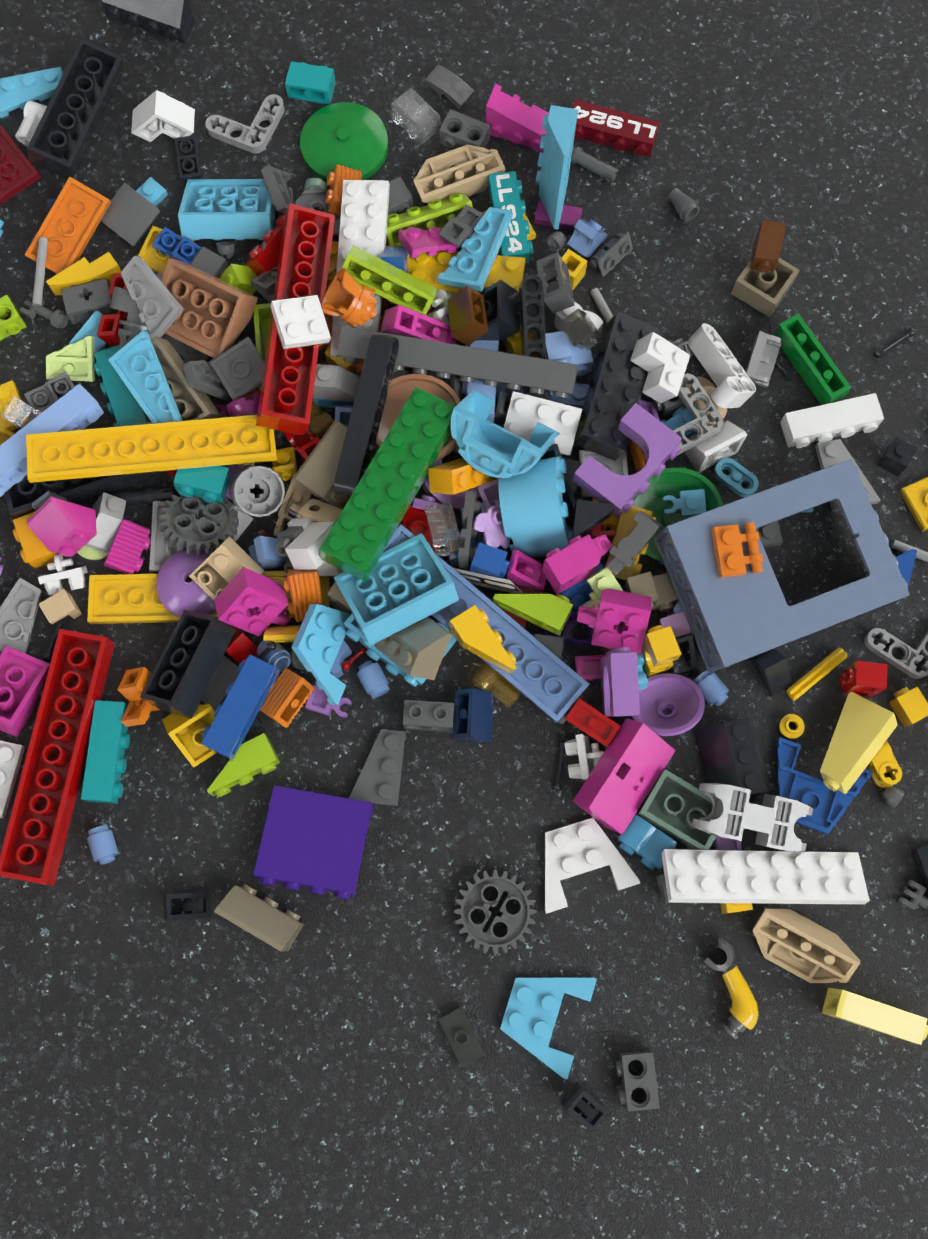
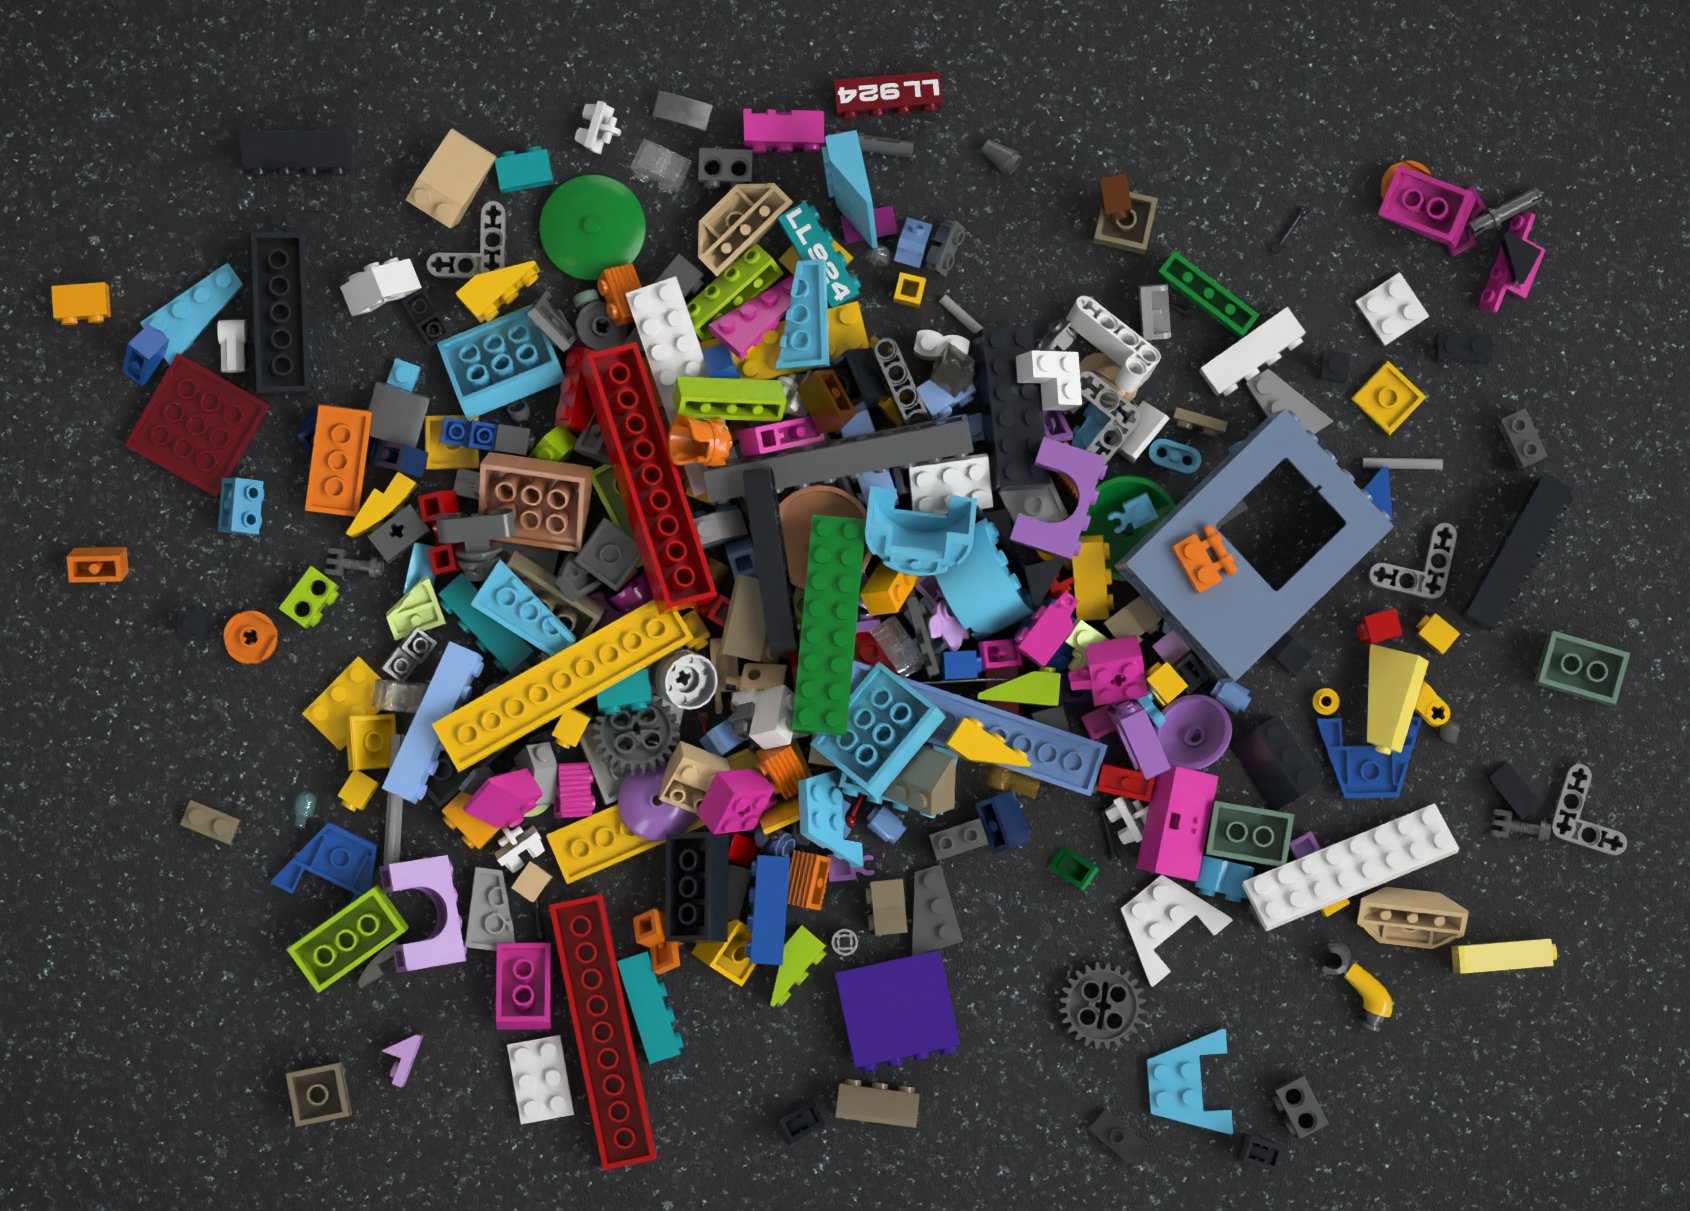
camera: 25 degrees left, 10 degrees up
(40, 271) = (332, 523): light grey bar -> none
(102, 844) = (688, 1099): medium blue brick -> none
(117, 244) = (397, 457): none -> dark blue slope
(147, 493) = (570, 727): none -> yellow brick
(153, 299) = (491, 522): light grey wing -> none
(250, 149) = (492, 289): none -> yellow slope
(251, 64) = (451, 179): none -> tan slope
(298, 767) = (844, 942): none -> light grey wheel
(300, 321) = (660, 487): white plate -> none
(346, 746) = (888, 907): none -> dark tan brick
(381, 73) = (600, 129): none -> white hips
(462, 227) = (776, 295): dark grey slope -> none
(518, 781) = (1073, 868): none -> green slope
(556, 282) = (904, 324): dark grey brick -> none
(633, 544) = (1097, 585): dark grey hips -> none
(734, 813) = (1297, 817): piece -> none
(773, 461) = (1188, 419): none -> dark tan plate
(816, 673) = (1332, 635): yellow axle -> none

